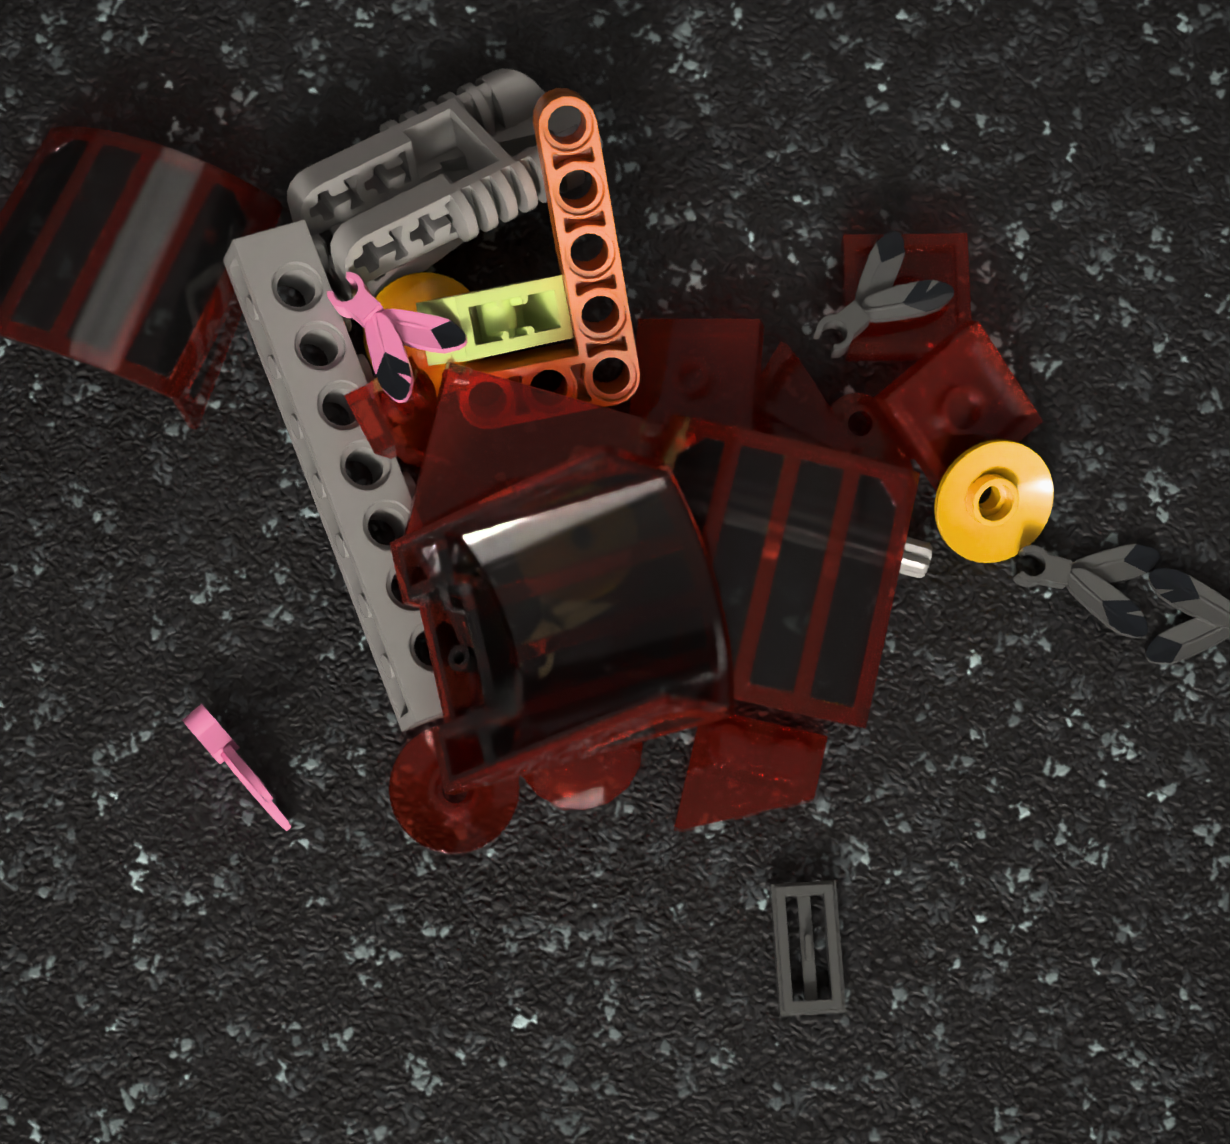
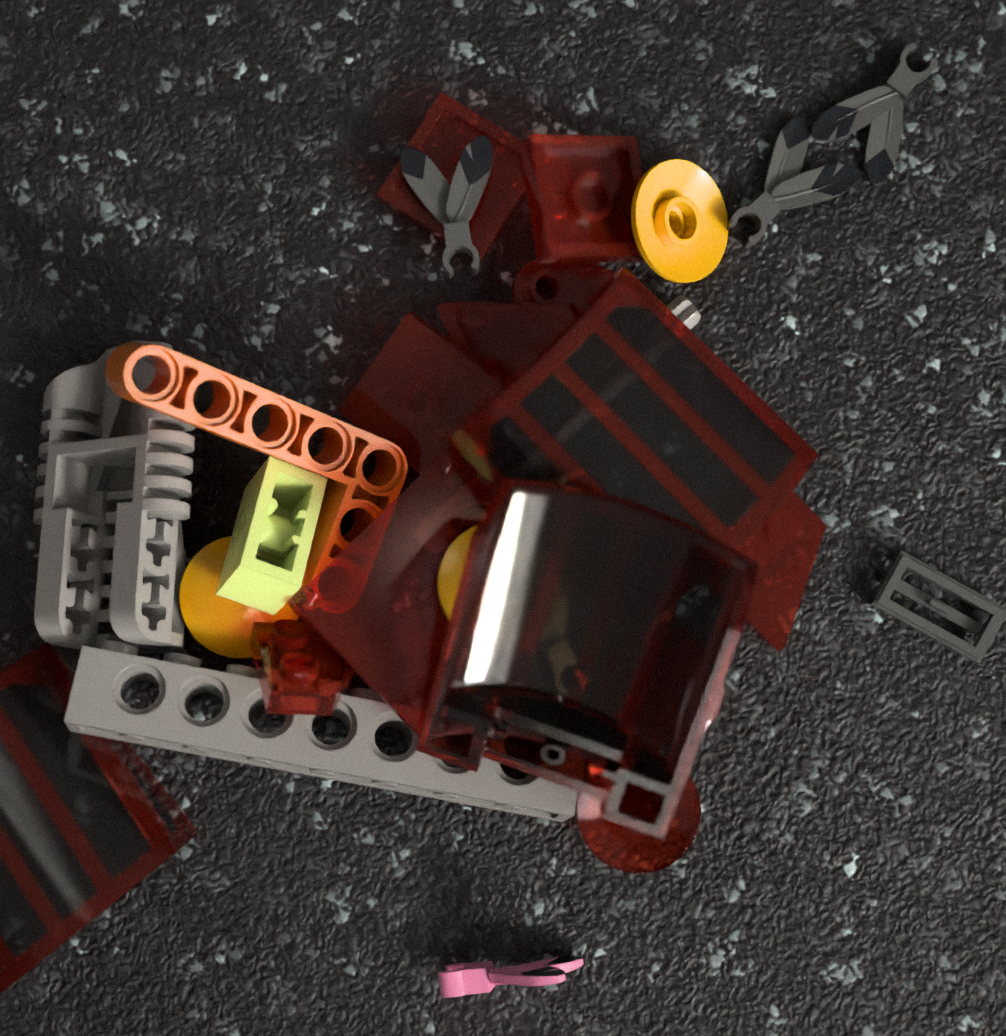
camera: 55 degrees left, 10 degrees up
(392, 329) = (232, 635): bright pink piece -> none

